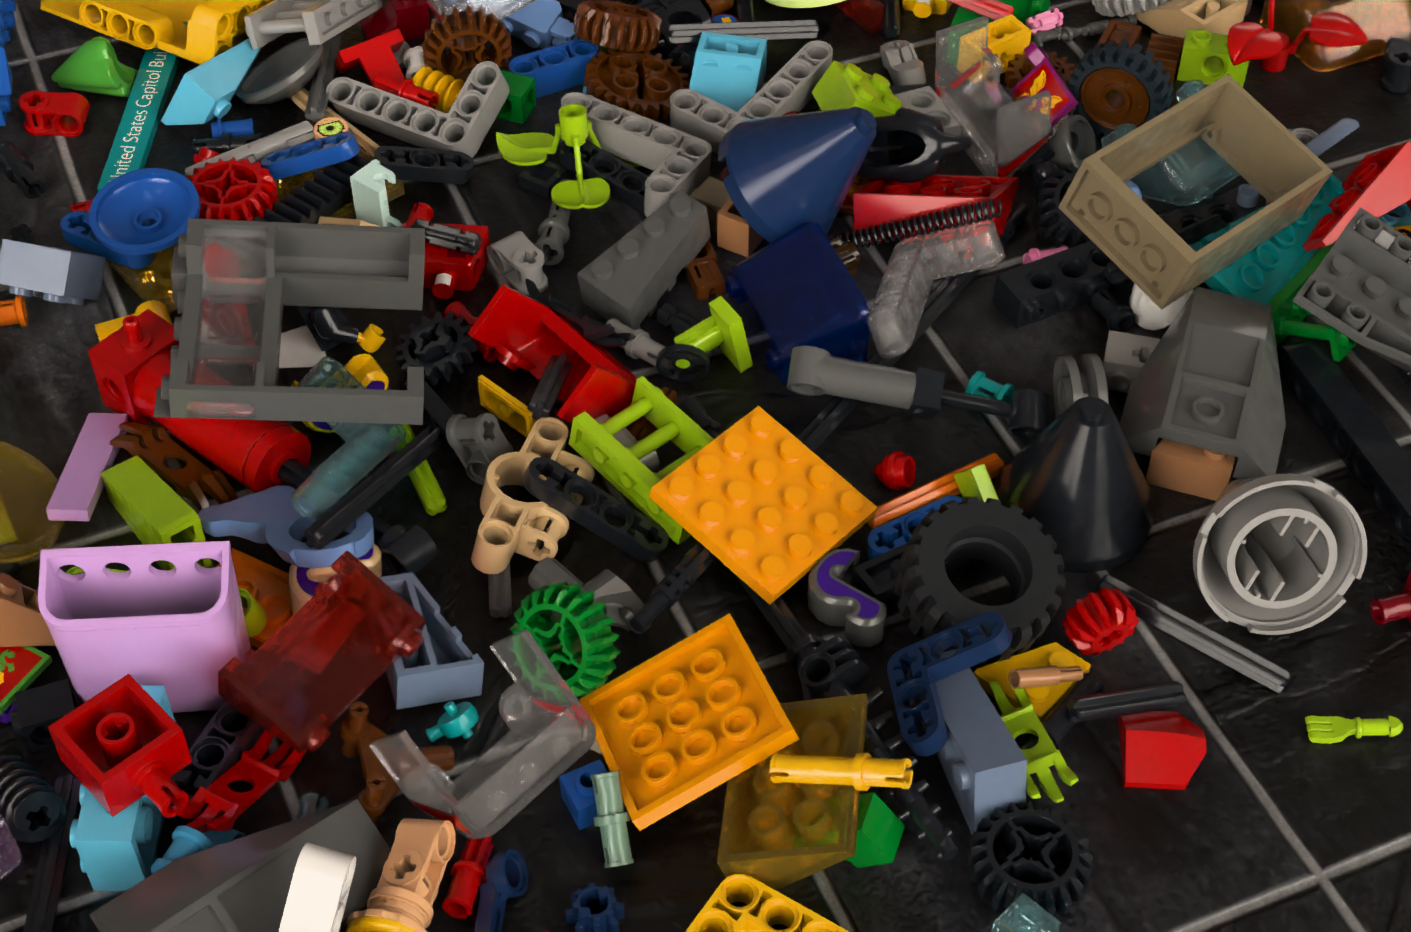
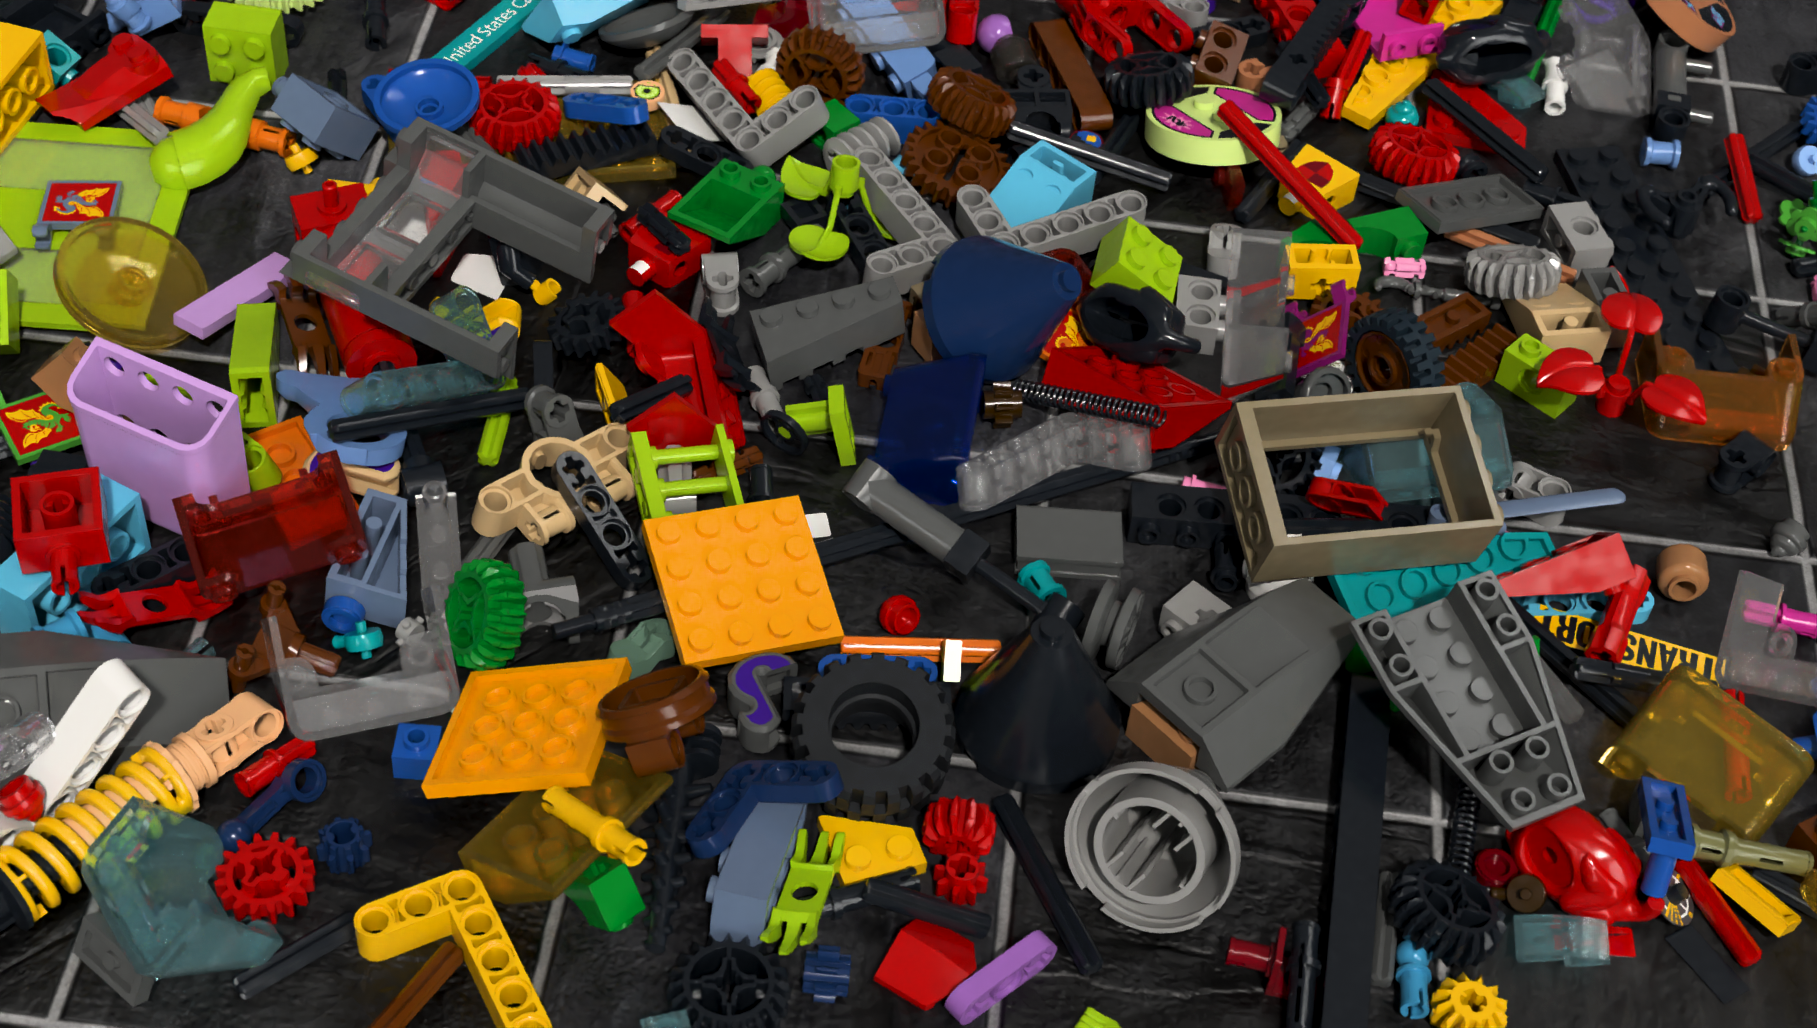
camera: 25 degrees right, 0 degrees up
(46, 318) = (301, 158): none -> yellow piece
(371, 194) = (632, 170): light aqua hinge -> none
(380, 138) = (691, 120): none -> white sticker
(422, 706) = (342, 613): none -> blue tile
(463, 600) = (438, 537): none -> clear piece
(481, 190) = (732, 202): none -> green slope
(491, 691) = (408, 627): none -> light grey piece
(542, 104) = (875, 132): none -> light grey piece
(612, 819) = (411, 777): sand green pin -> none
(712, 599) = (645, 646): none -> sand green piece
(816, 642) = (656, 714): none -> reddish brown piece
(984, 342) = (1070, 541): none -> dark grey piece
(1043, 676) = (865, 848): medium nougat pin -> none
(1095, 800) = (826, 974): none -> dark blue gear
(1129, 663) = (960, 878): none -> red gear
(1185, 207) = (1346, 498): none -> red piece
(1227, 728) = (1000, 977): none -> medium lavender beam

